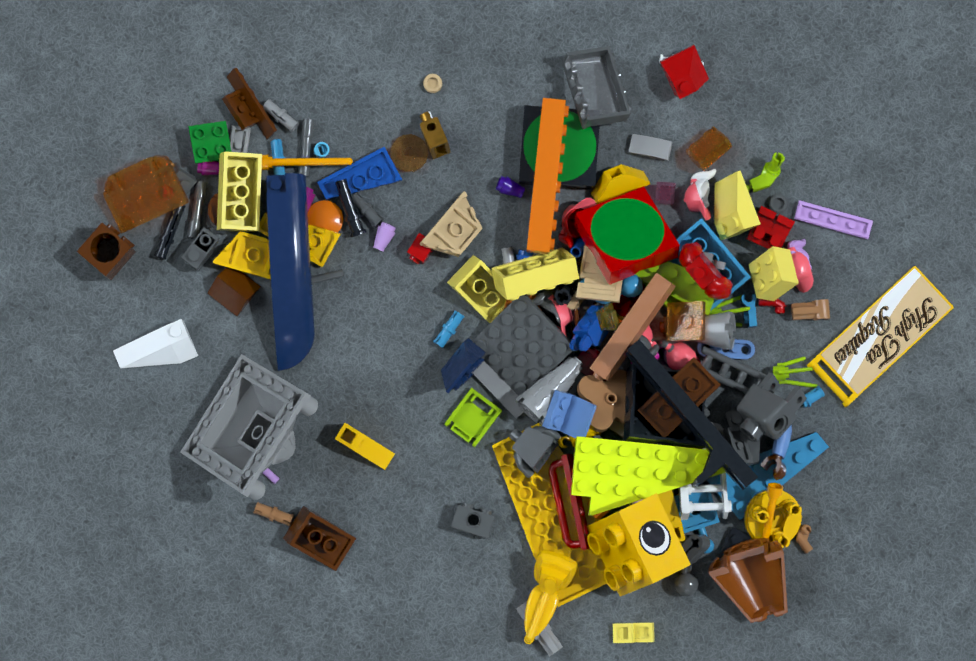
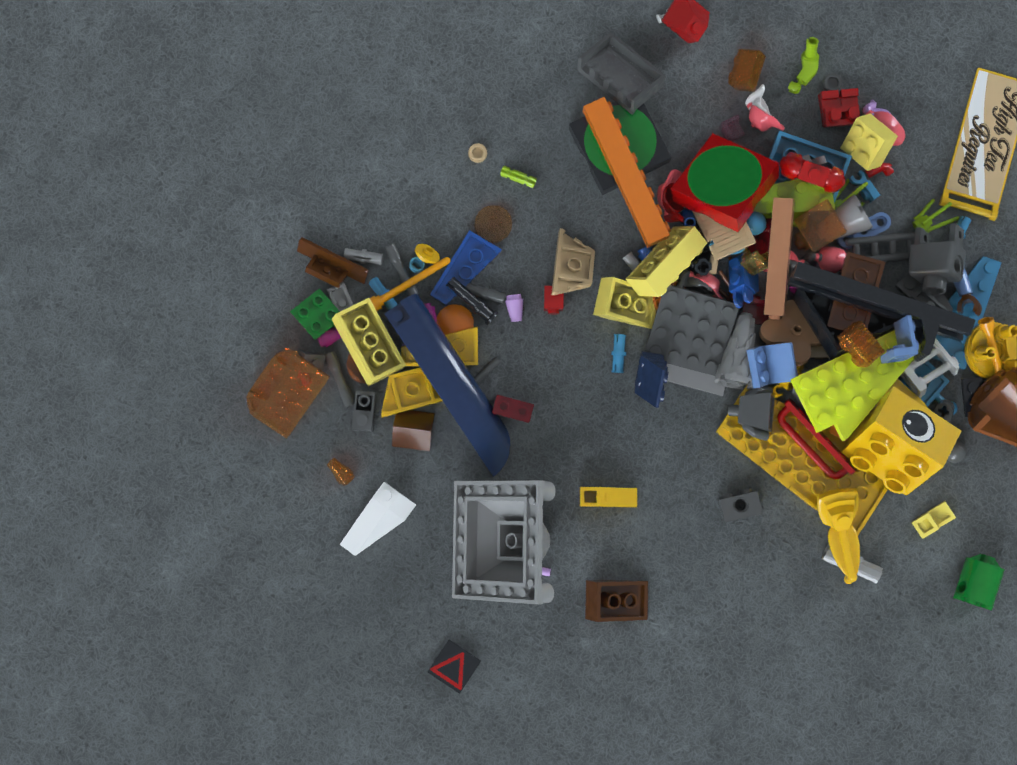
camera: 30 degrees left, 0 degrees up
(89, 250) = (268, 470): reddish brown brick -> none
(147, 511) = (454, 666): none -> black piece
(151, 292) = (341, 472): none -> clear orange cone
(166, 238) = (327, 413): black pin -> none
(273, 514) = (565, 602): medium nougat pin -> none
(329, 322) = (513, 408): none -> dark red bracket
(336, 145) = (427, 253): none -> yellow piece
(434, 135) = (507, 195): pearl gold torso -> none
(455, 125) = (518, 176): none -> lime axle
(470, 419) = (685, 420): lime container -> none
(509, 187) = (597, 202): dark purple cone -> none
(618, 182) = (687, 144): yellow slope -> none
(650, 146) = (695, 98): light grey slope -> none
(651, 441) = (860, 344): none -> clear orange brick
(689, 468) = (906, 345): none -> medium blue bracket
(733, 207) = (798, 105): light yellow slope -> none
(812, 310) = (918, 154): medium nougat piece -> none
(833, 220) = (886, 69): lavender tile -> none

